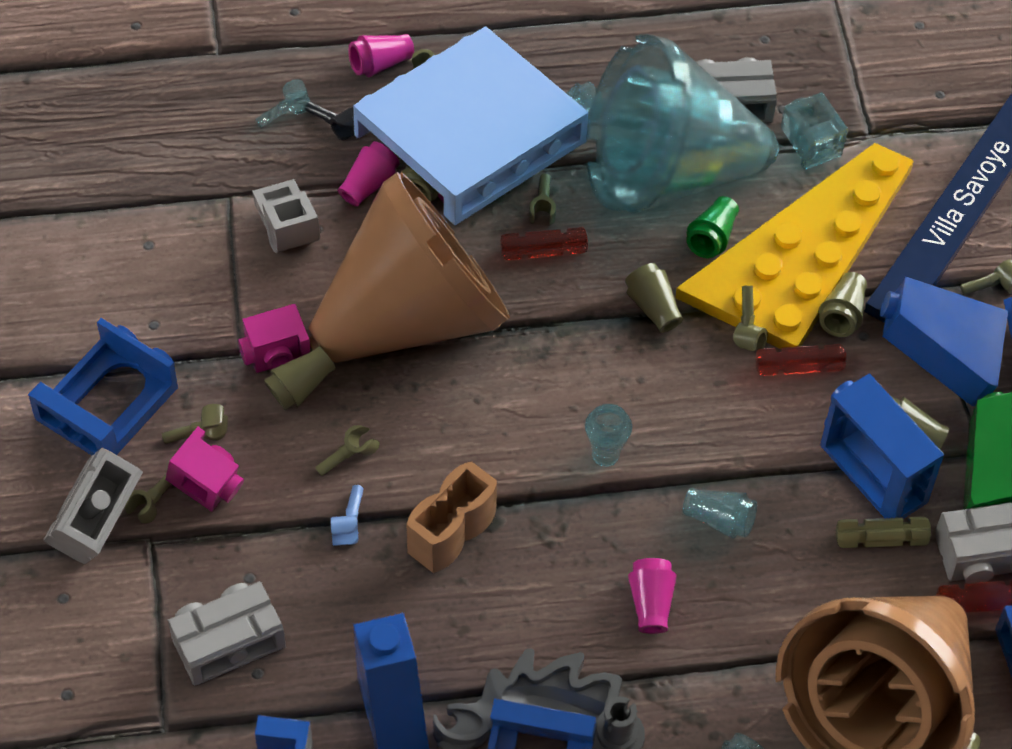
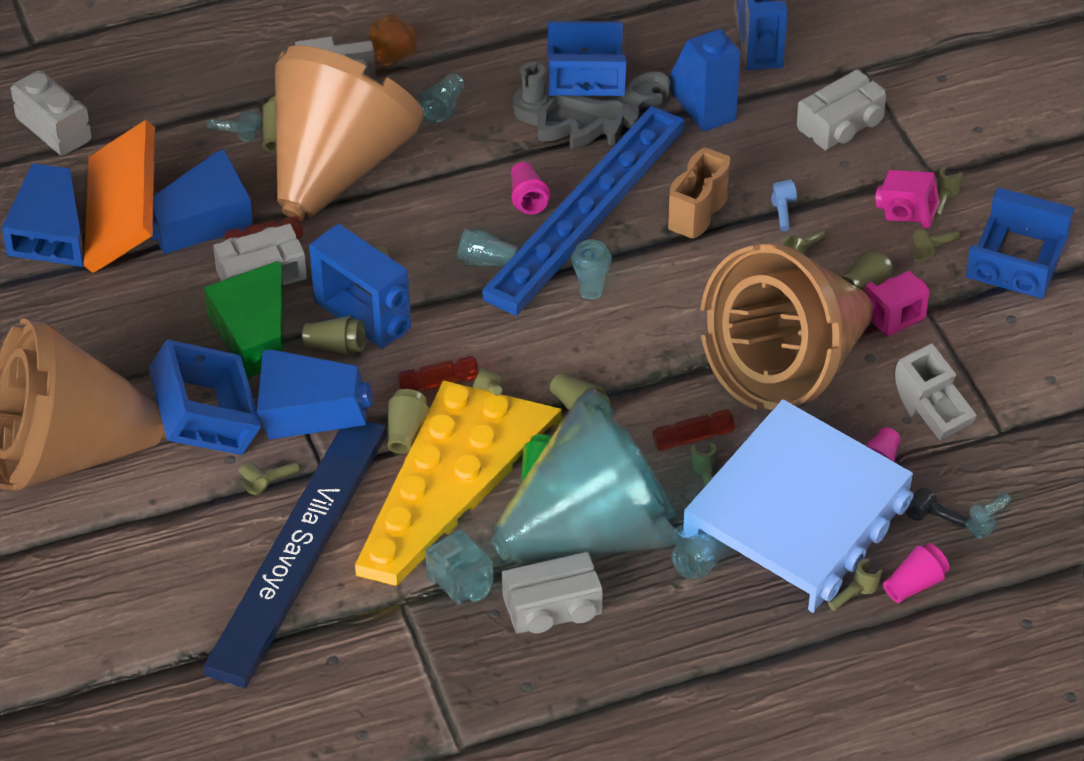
camera: 170 degrees right, 10 degrees down
(93, 506) = (980, 154): light grey brick -> none
(582, 554) = (582, 211): none -> blue plate

